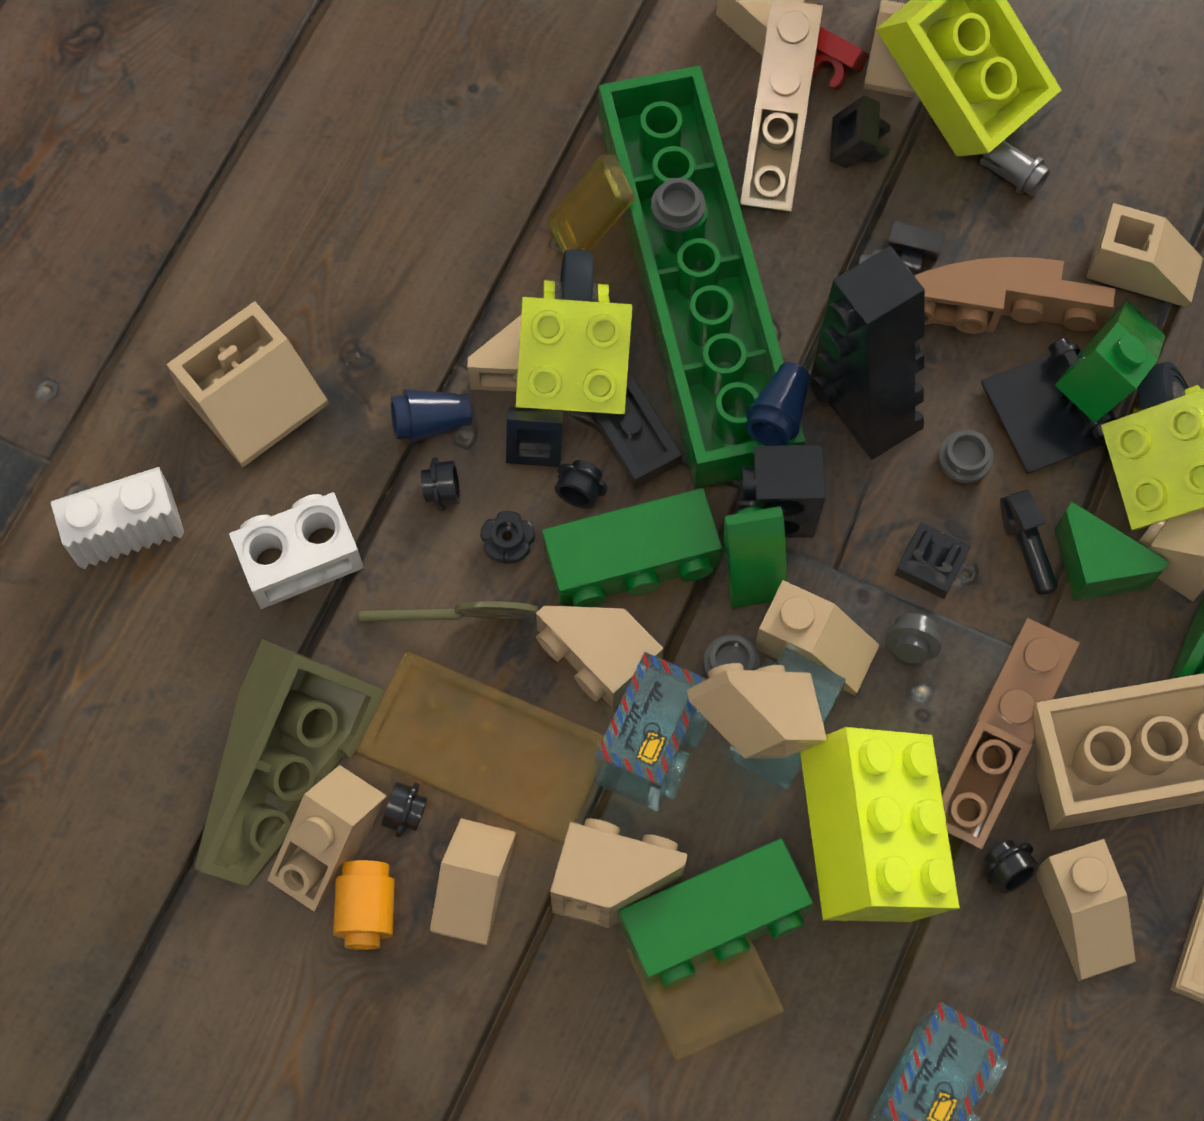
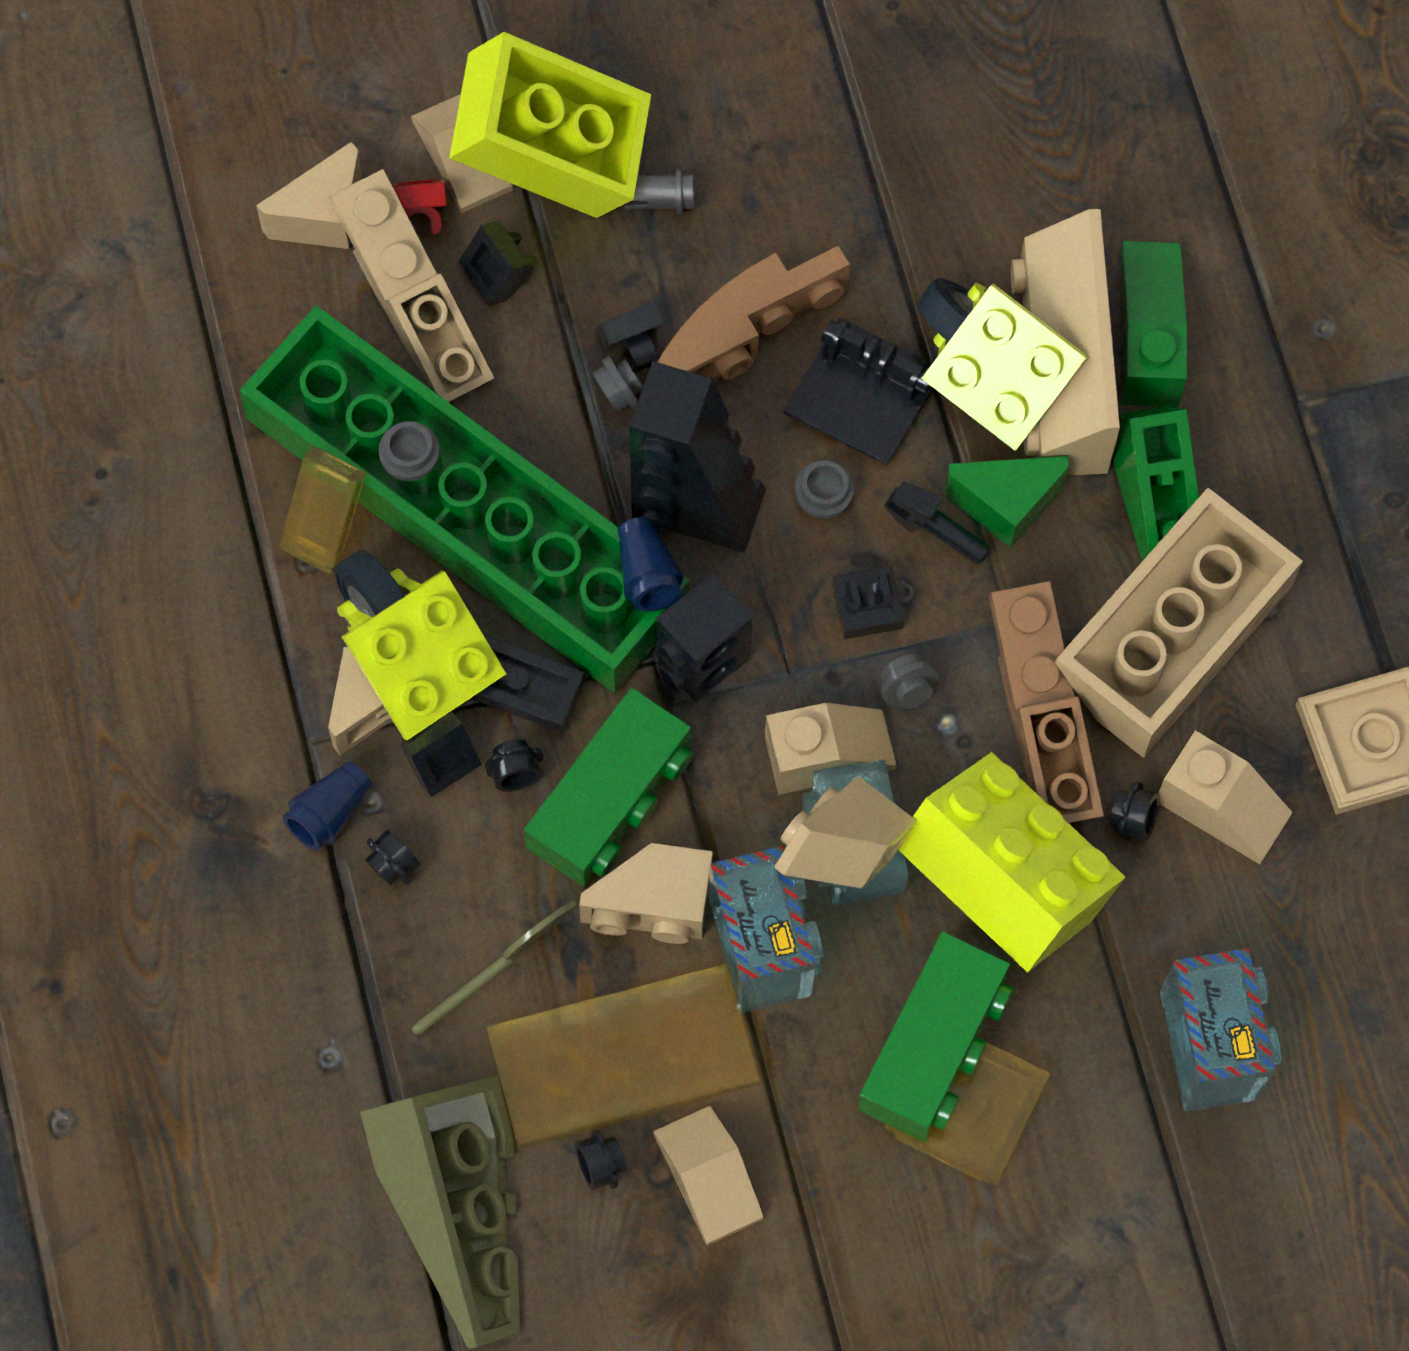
camera: 40 degrees left, 0 degrees up
(117, 517) = (130, 1110): white brick -> none
(247, 384) = (145, 903): tan slope -> none
(301, 562) = (330, 1019): white brick -> none
(325, 834) = (556, 1236): tan slope -> none
(364, 904) = (636, 1264): light orange brick -> none
(511, 550) = (493, 876): black plate -> none
(610, 871) = (822, 1072): tan slope -> none
(729, 650) = (767, 818): dark grey plate -> none
(755, 555) = (724, 711): green slope -> none
(1113, 362) = (889, 312): green slope -> none
(1145, 256) = (837, 196): tan slope -> none

